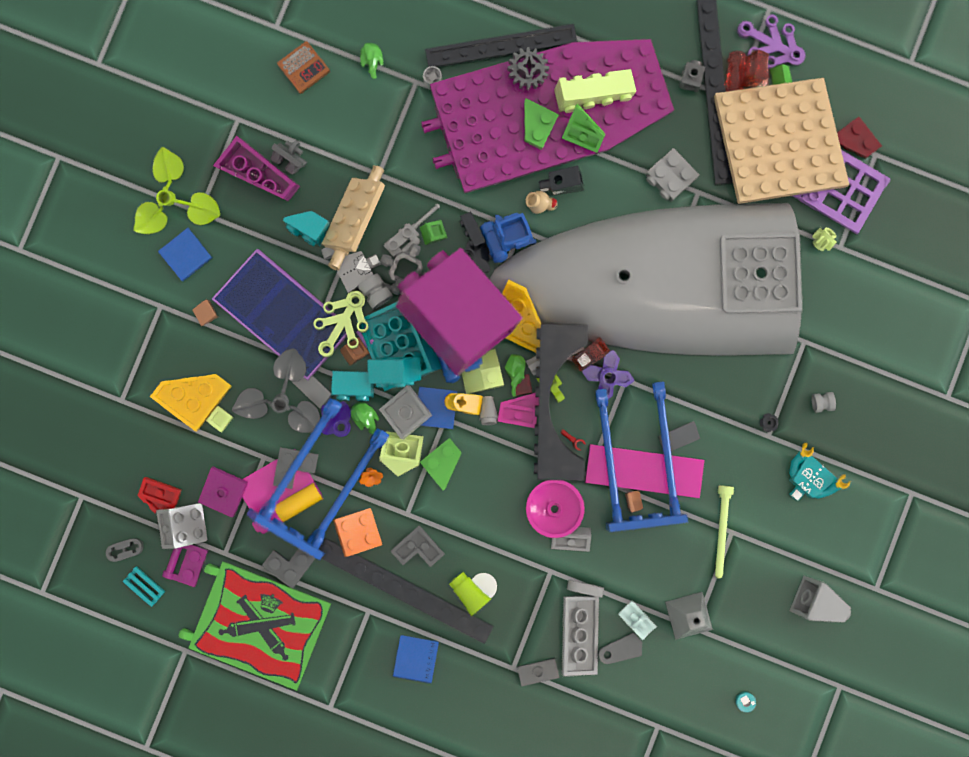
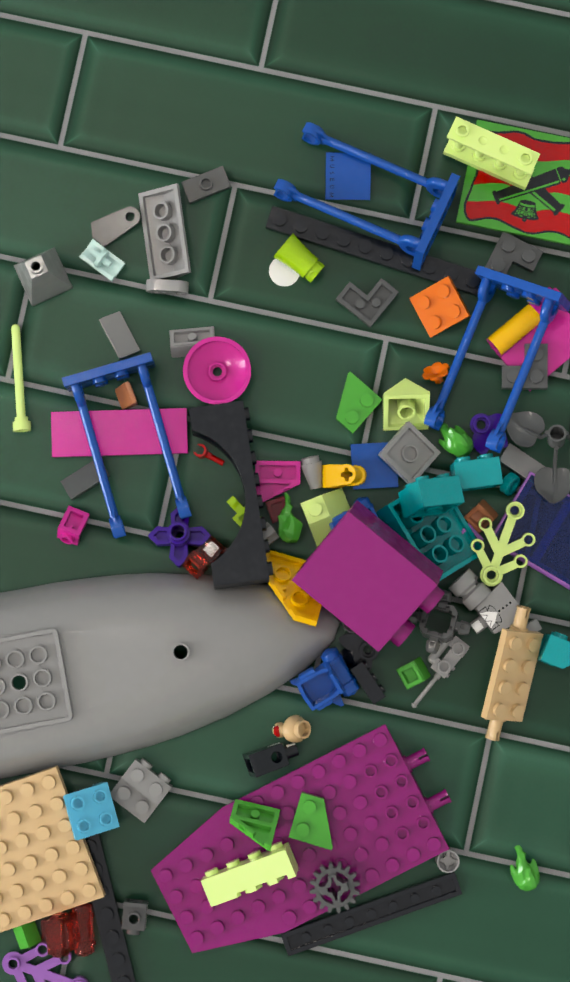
camera: 175 degrees right, 0 degrees up
(290, 656) = (491, 153): none -> yellowish green fence
(325, 373) = (510, 484): none -> teal tile
(341, 635) = (410, 244): none -> blue piece
(632, 553) = (119, 335): none -> light grey slope
(695, 399) = (72, 525): none -> dark pink bracket
(716, 162) = (91, 811): none -> medium azure bracket

